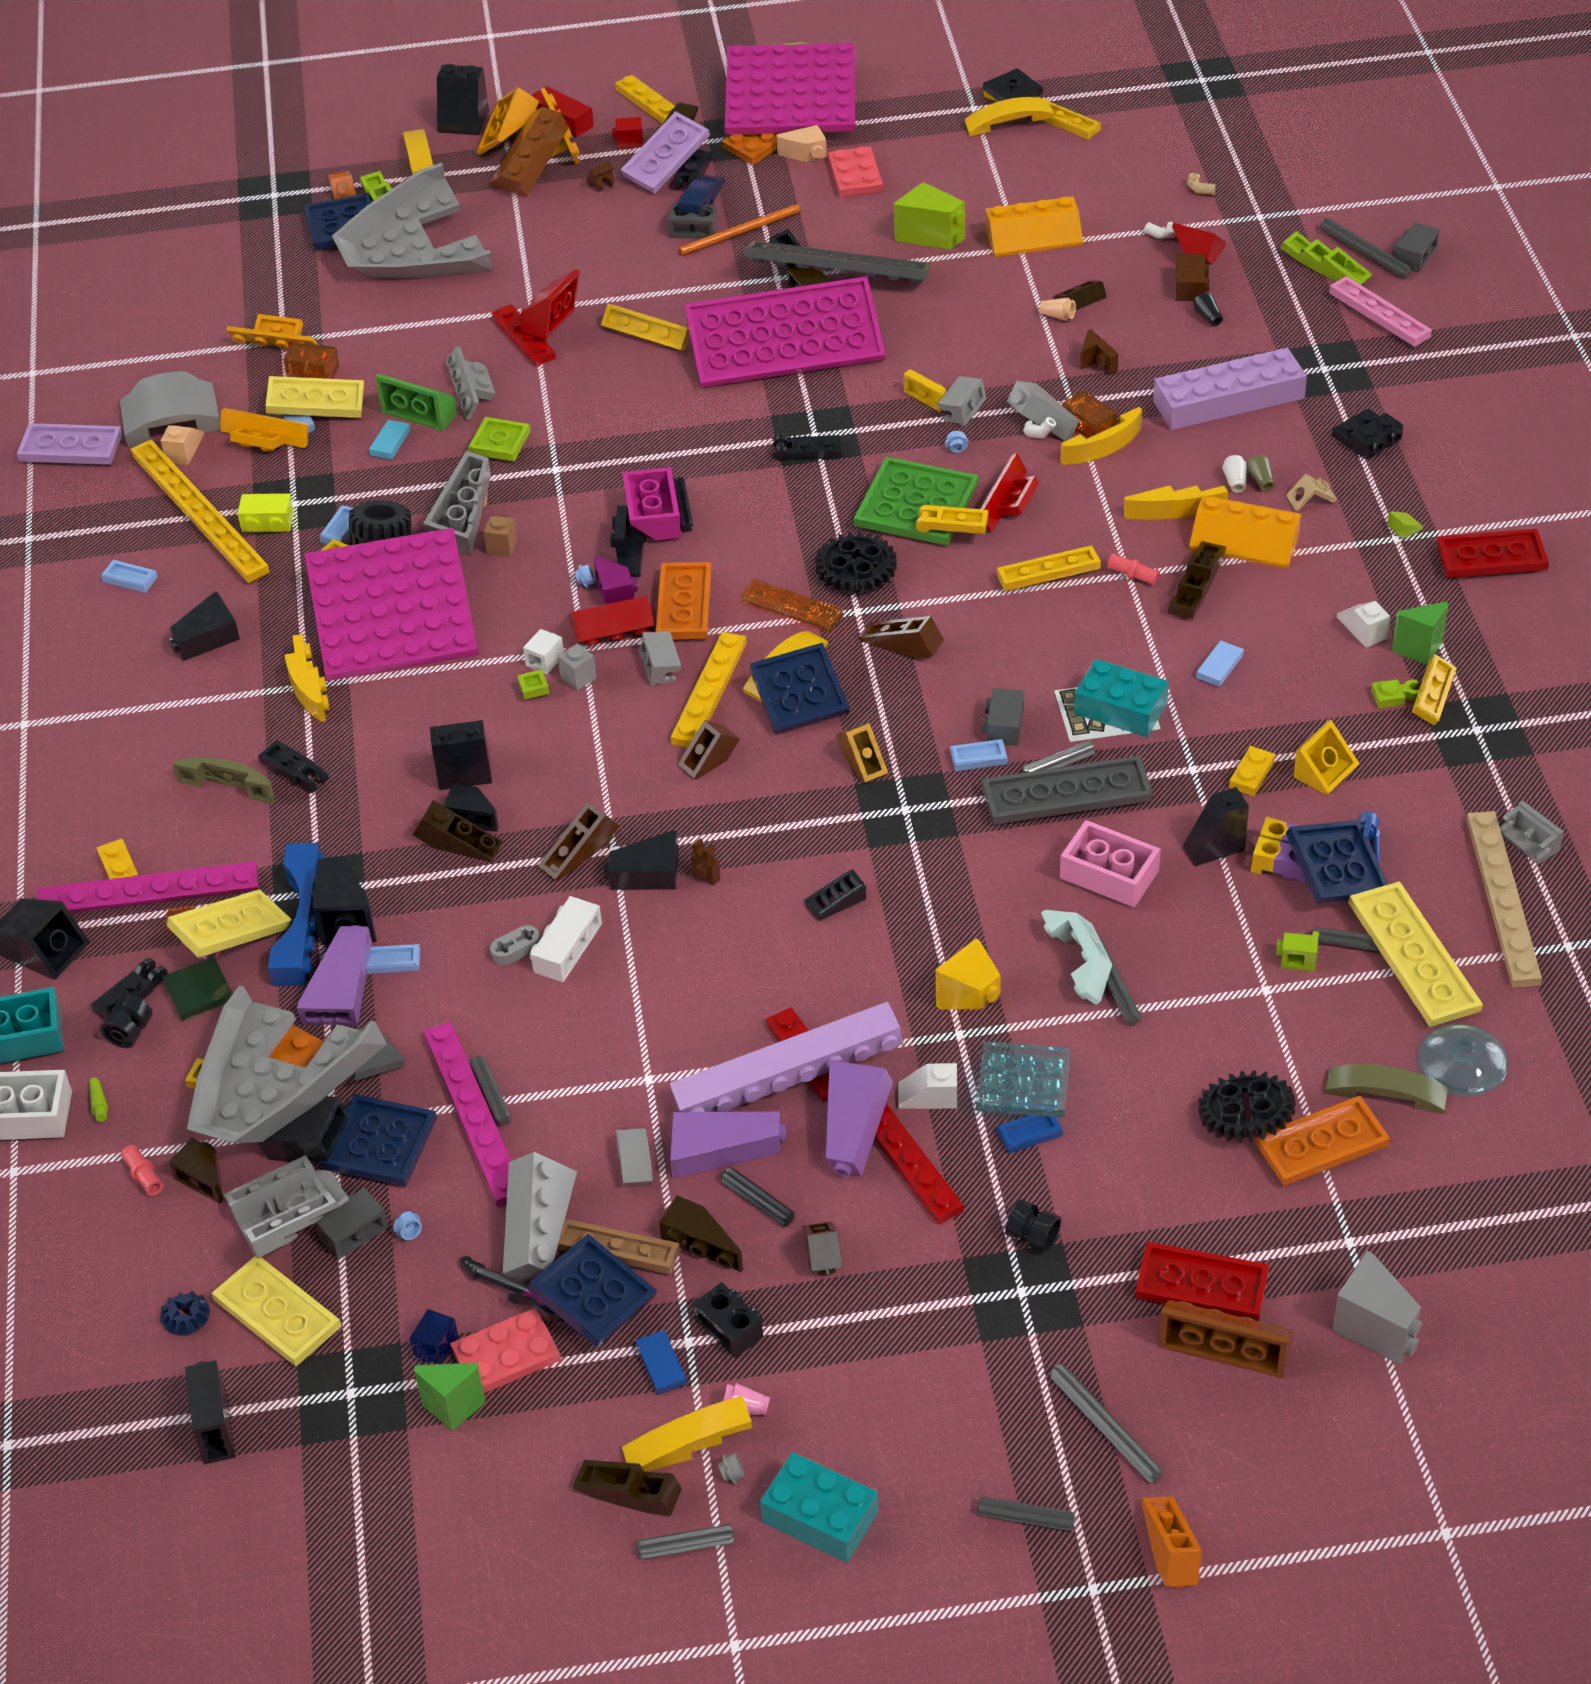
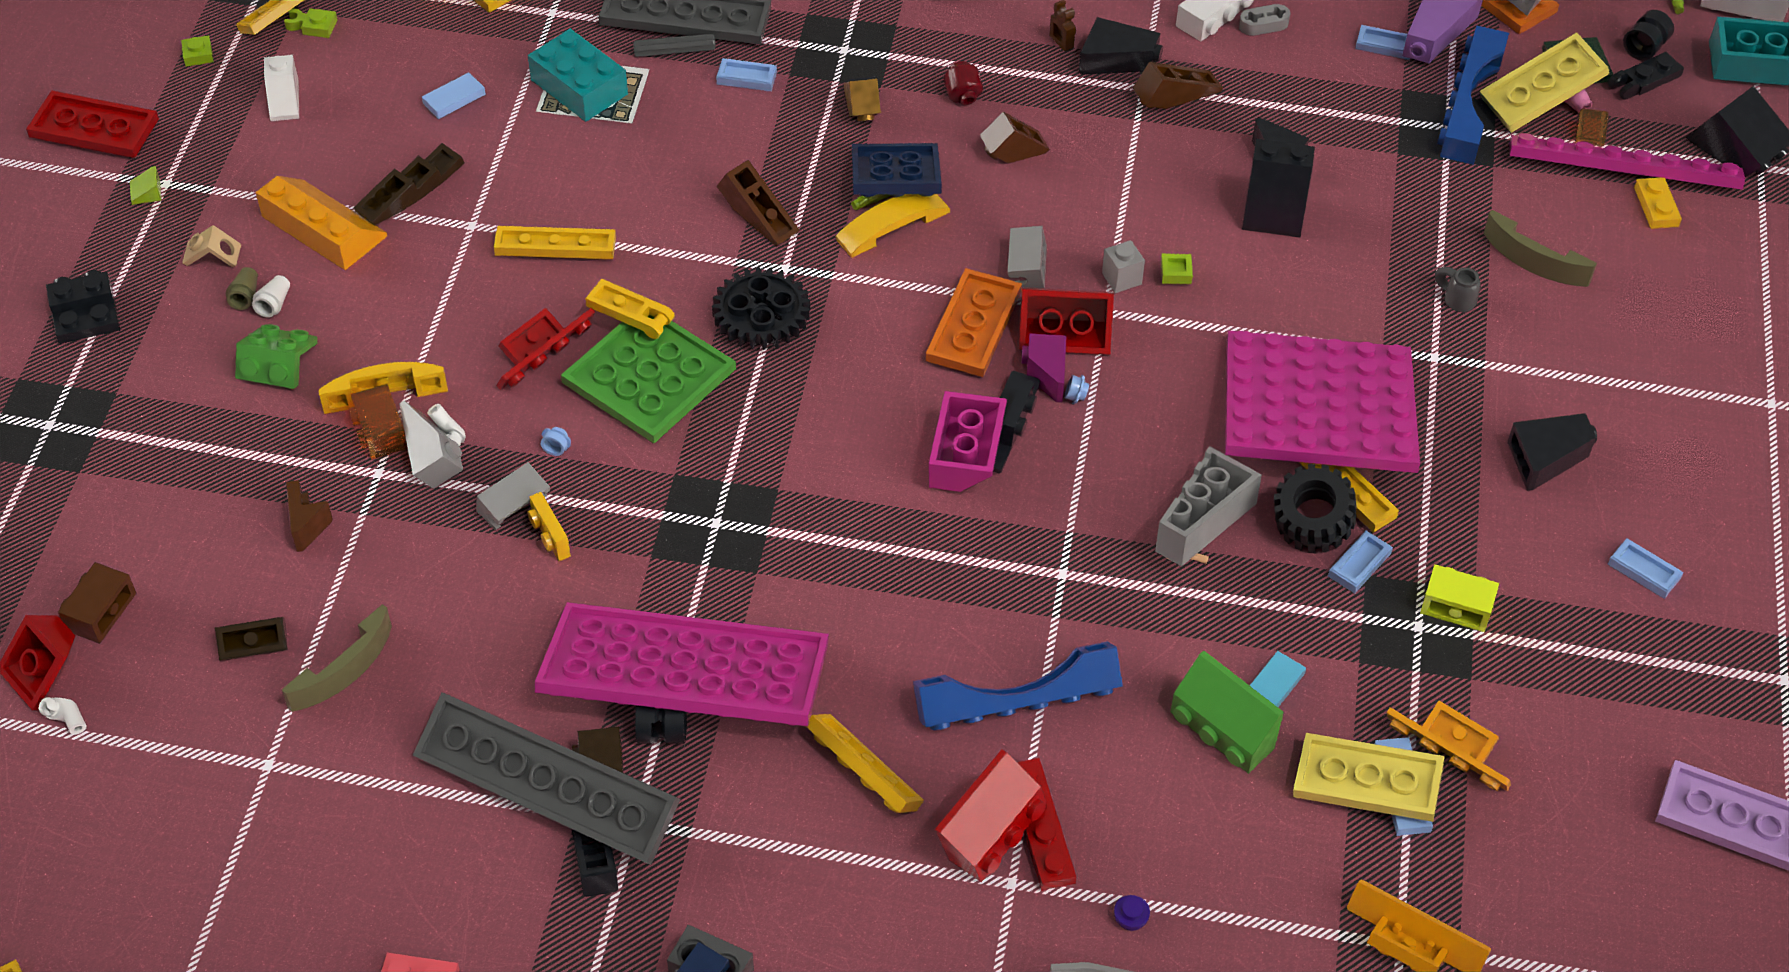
camera: 165 degrees left, 5 degrees up
(165, 401) = (1583, 836): light grey slope -> none
(181, 443) = (1567, 762): light nougat slope -> none
(200, 511) = (1553, 643): yellow plate -> none
(289, 730) = (1461, 290): none -> dark grey piece
(292, 766) = (1460, 248): black hinge -> none
(306, 680) = (1436, 341): yellow slope -> none
(311, 361) = (1364, 855): clear orange brick -> none
(339, 900) = (1427, 69): black slope -> none
(452, 308) = (1131, 912): none -> dark purple plate
(455, 834) = (1317, 124): dark brown slope -> none
(470, 381) = (1139, 743): light grey bracket -> none
(499, 439) = (1127, 625): lime plate -> none
(500, 536) = (1164, 464): medium nougat brick -> none
(543, 651) = (1154, 300): white brick -> none
(560, 382) = (1084, 671): none -> blue arch
(686, 520) = (920, 476): black axle -> none
(709, 687) = (985, 218): yellow plate -> none
(737, 230) = (639, 939): orange piece -> none
(776, 788) = (963, 82): none -> dark red head
(792, 605) = (856, 281): clear orange plate -> none
(806, 447) = (736, 497): black plate -> none
(929, 218) = (374, 815): lime slope -> none
(1004, 716) = (701, 91): dark grey brick -> none
(1014, 275) = (312, 689): none -> olive slope
(1033, 226) = (231, 775): light orange slope -> none
(1058, 308) = (298, 609): light nougat cone -> none
(1133, 569) = (466, 214): coral pin -> none
(1167, 503) = (376, 276): yellow slope -> none
(1200, 439) = (272, 355): none -> bright green bracket
(1207, 307) = (115, 546): black cone -> none
(1229, 388) = (189, 404): lavender brick -> none
(1420, 631) = (240, 40): bright green slope -> none
(1469, 640) = (197, 51): none -> lime plate

